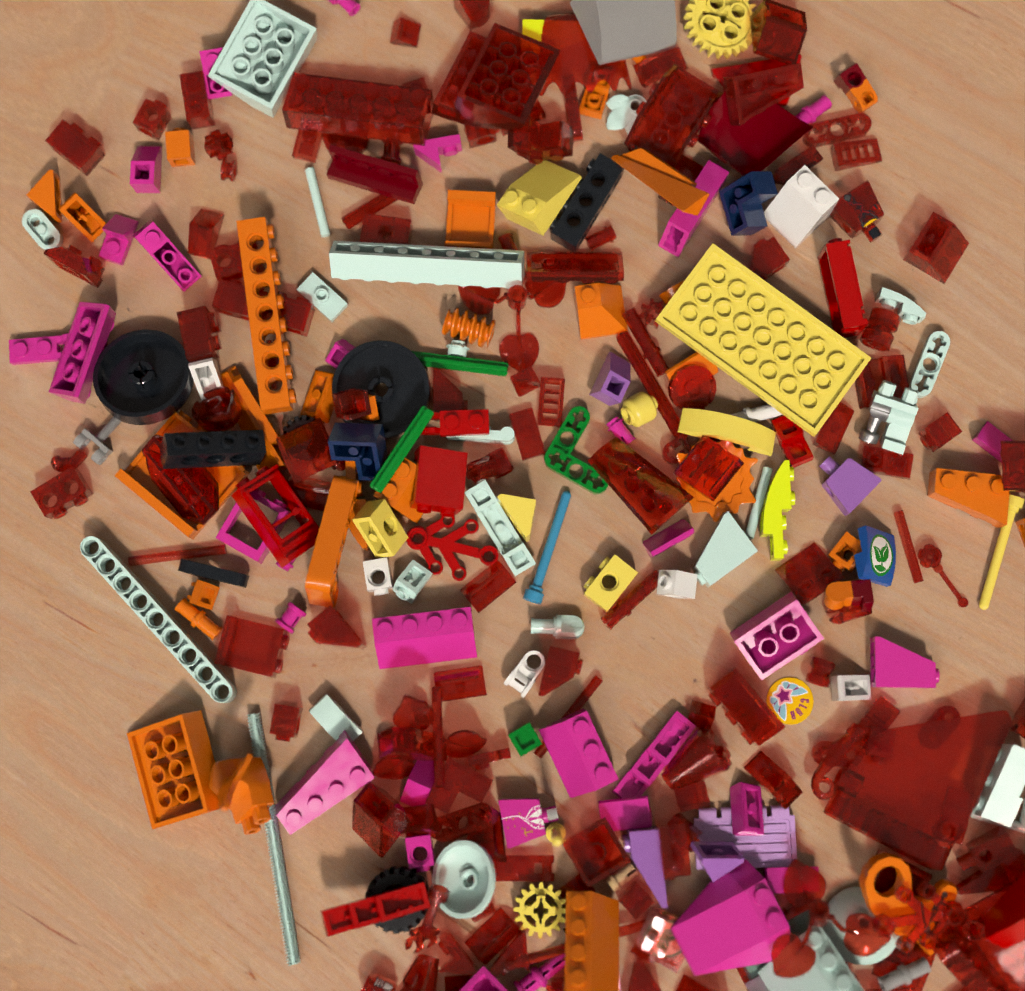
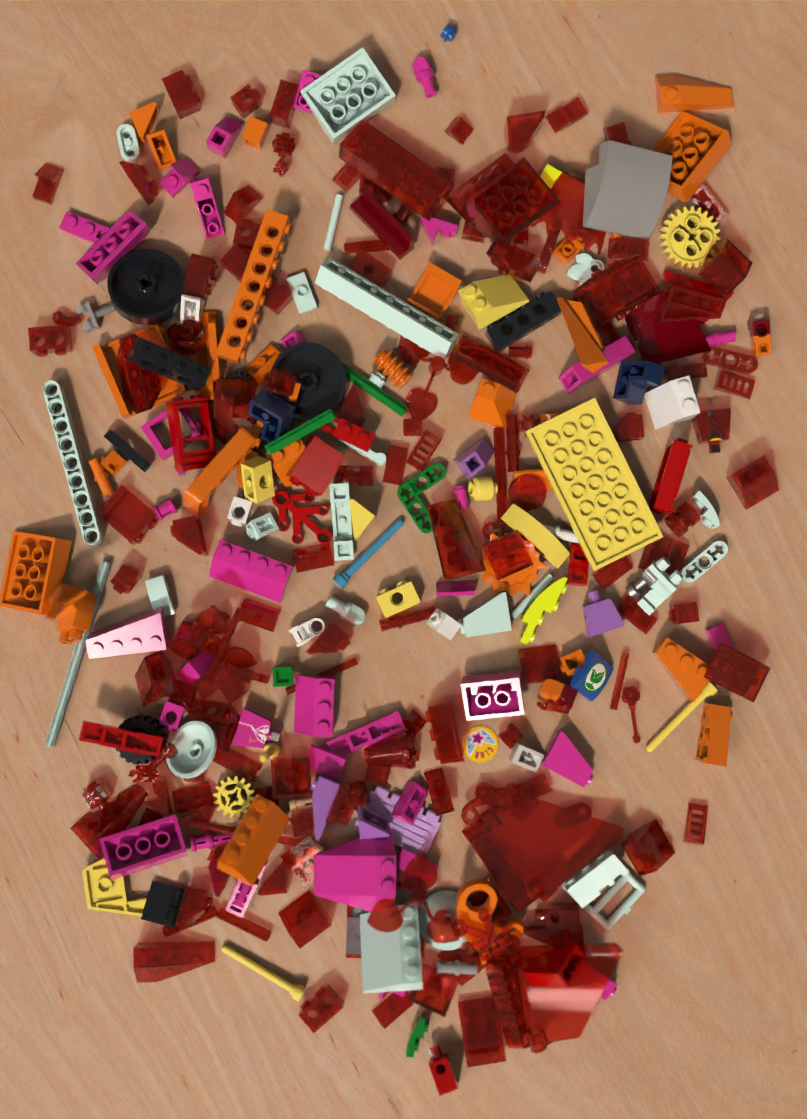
camera: 20 degrees right, 5 degrees up
(177, 555) = (108, 424): clear red bar -> none

